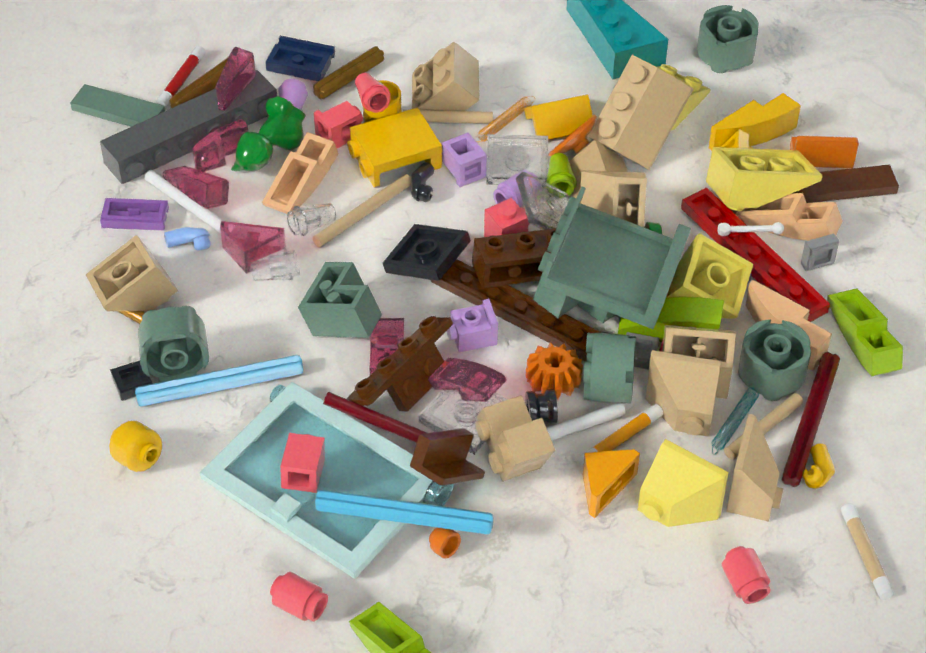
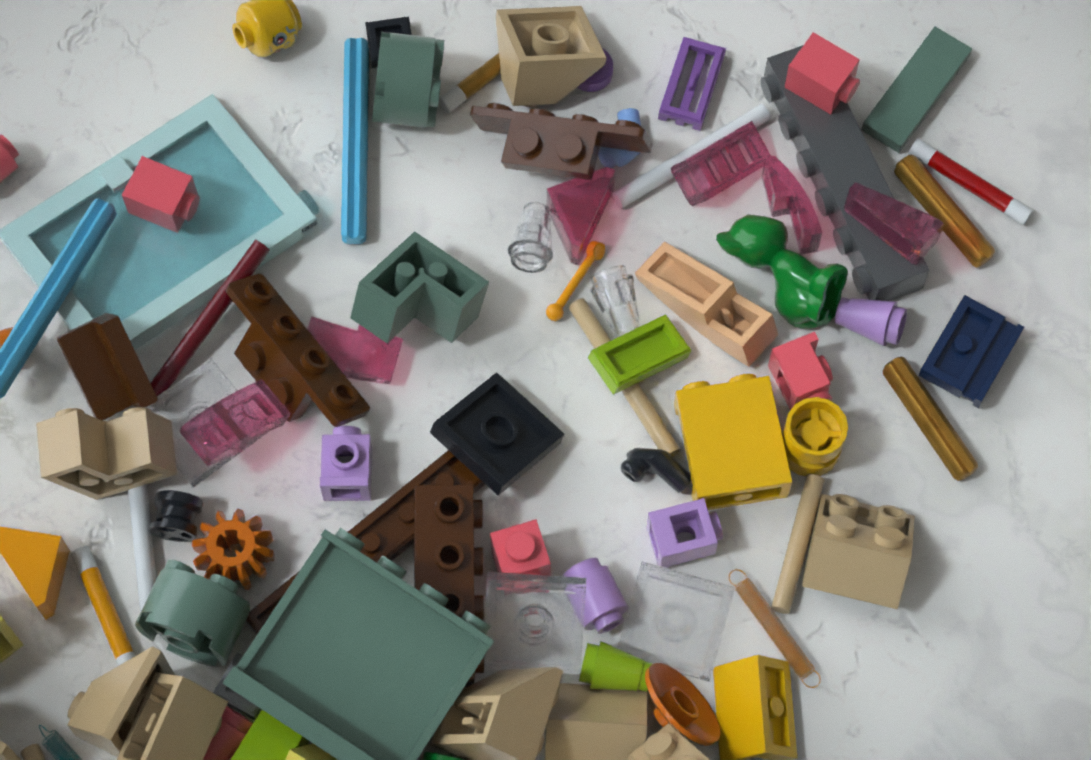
camera: 105 degrees right, 20 degrees up
(131, 123) = (823, 74): none -> coral brick
(210, 252) = (557, 144): none -> reddish brown bracket
(324, 251) = (594, 251): none -> light orange hinge
(348, 199) = (639, 354): none -> lime tile
(373, 94) = (800, 400): coral cone -> none

